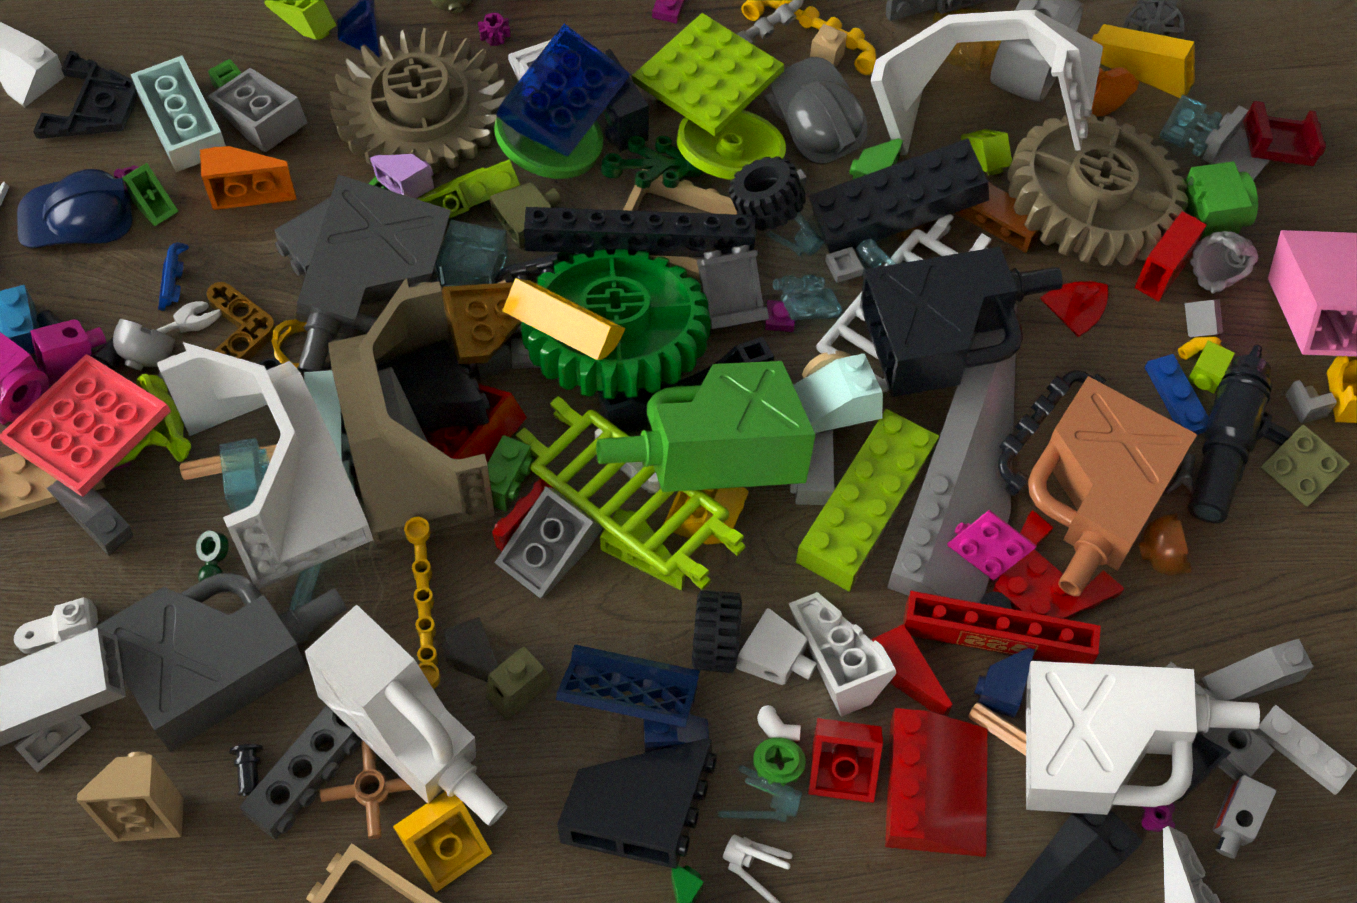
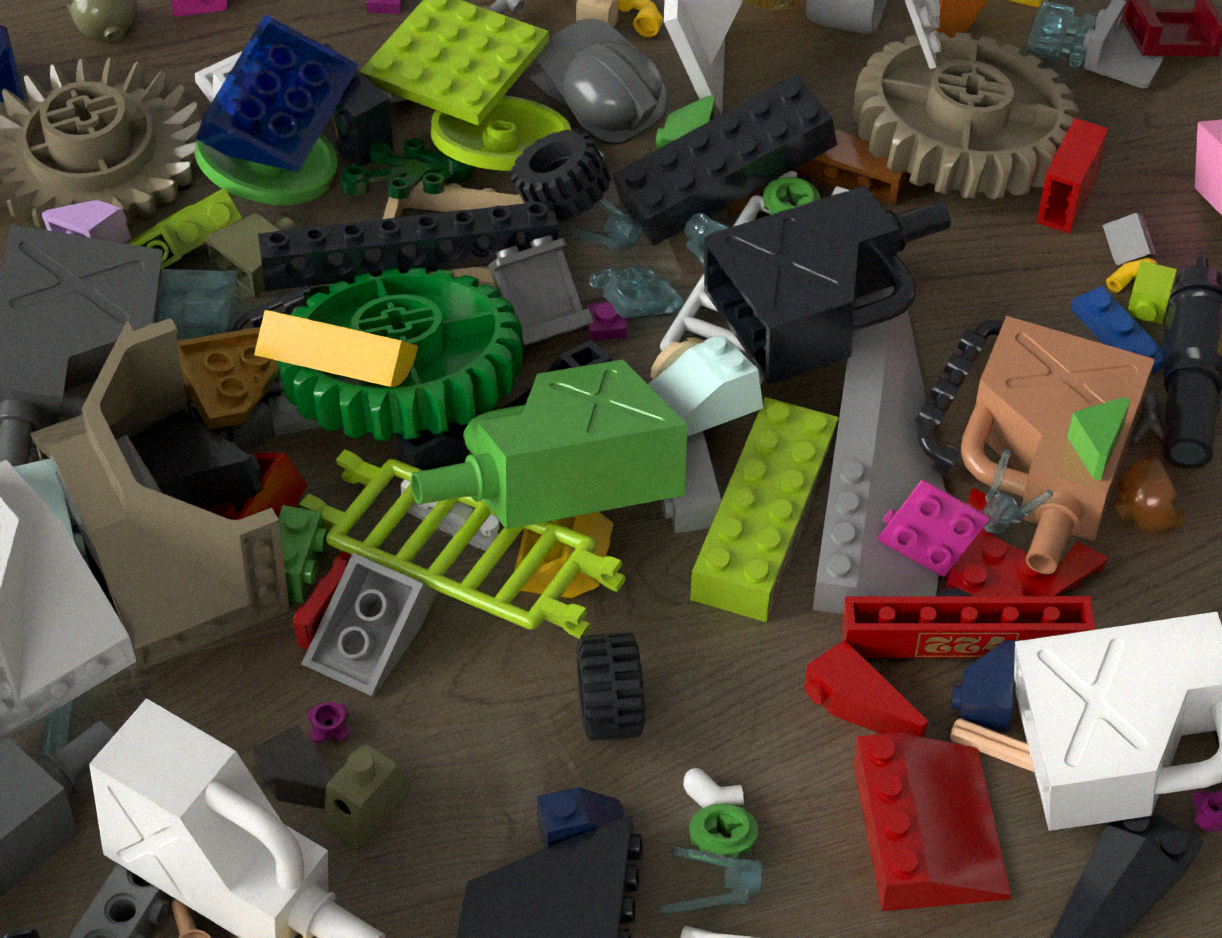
camera: 10 degrees left, 10 degrees down
(417, 533) = (195, 637): yellow bar -> none
(494, 29) = (169, 50): magenta gear -> none
(501, 607) = (325, 713): none -> magenta plate
(619, 550) = (474, 622): lime slope -> none
(623, 673) = (511, 768): dark blue fence -> none
(775, 651) = (689, 702): white torso -> none
(844, 264) = (673, 249): light grey plate -> none
(845, 760) = (808, 814): red slope -> none
(847, 660) = (781, 697): white wedge -> none
(951, 233) = (797, 190): none -> bright green gear
(991, 149) = (831, 91): lime slope -> none
(1049, 535) = (1003, 508): none -> clear light blue plant
(1078, 304) = (972, 251): red shield -> none
(1135, 493) = (1096, 433): none -> bright green slope
(1220, 260) = (1132, 170): light grey hair -> none
(1221, 197) = (1123, 101): bright green piece -> none

